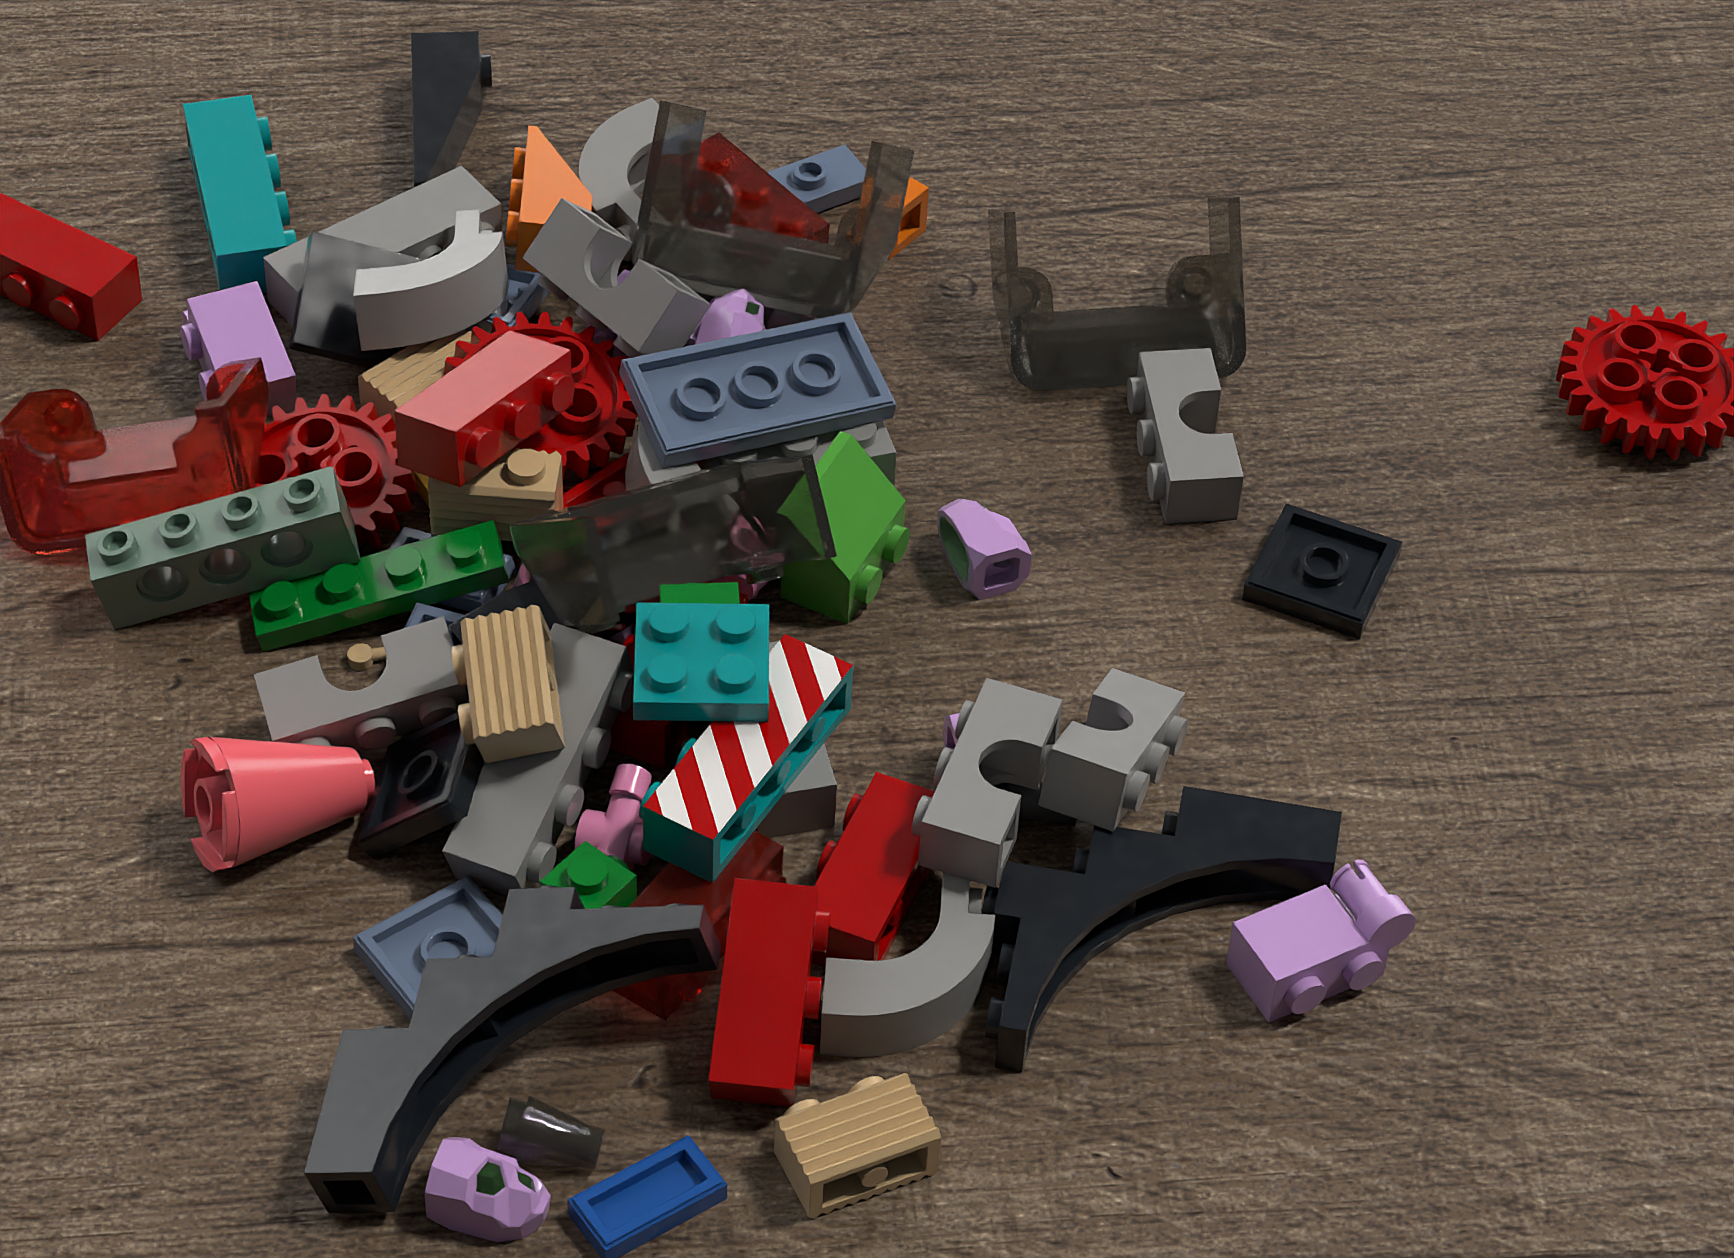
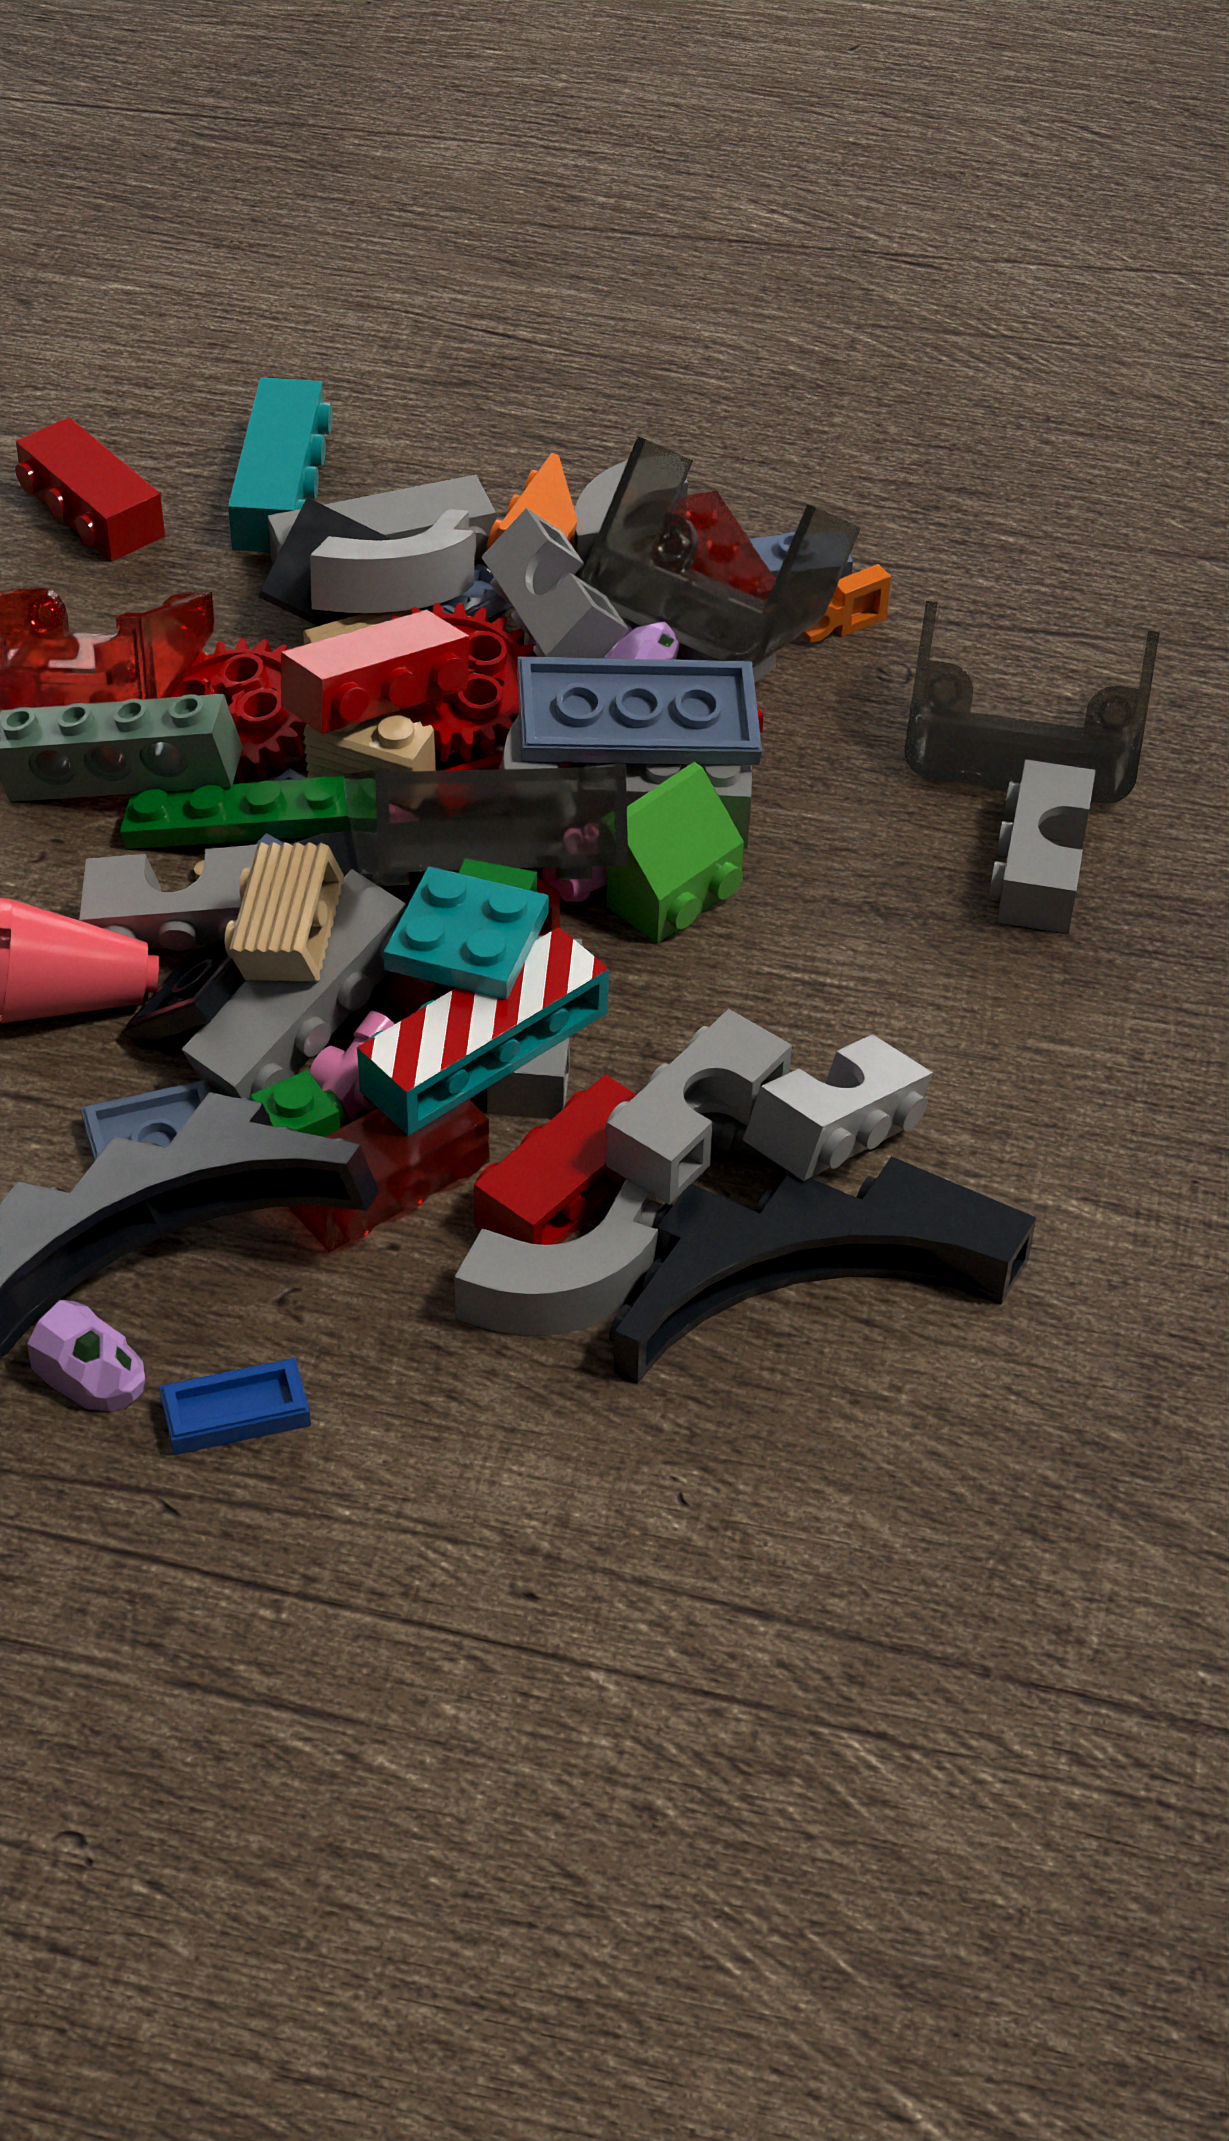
camera: 20 degrees right, 0 degrees up
(237, 327) = (219, 566): lavender hinge -> none
(445, 98) = (494, 420): black slope -> none
(548, 1137) = (164, 1324): clear smoke cone -> none
(768, 993) = (411, 1245): red brick -> none
(856, 1144) = (442, 1406): tan brick -> none
(983, 548) = (807, 904): lavender rock -> none
(1318, 943) = (962, 1340): lavender hinge -> none
(1322, 571) = (1129, 998): black tile -> none

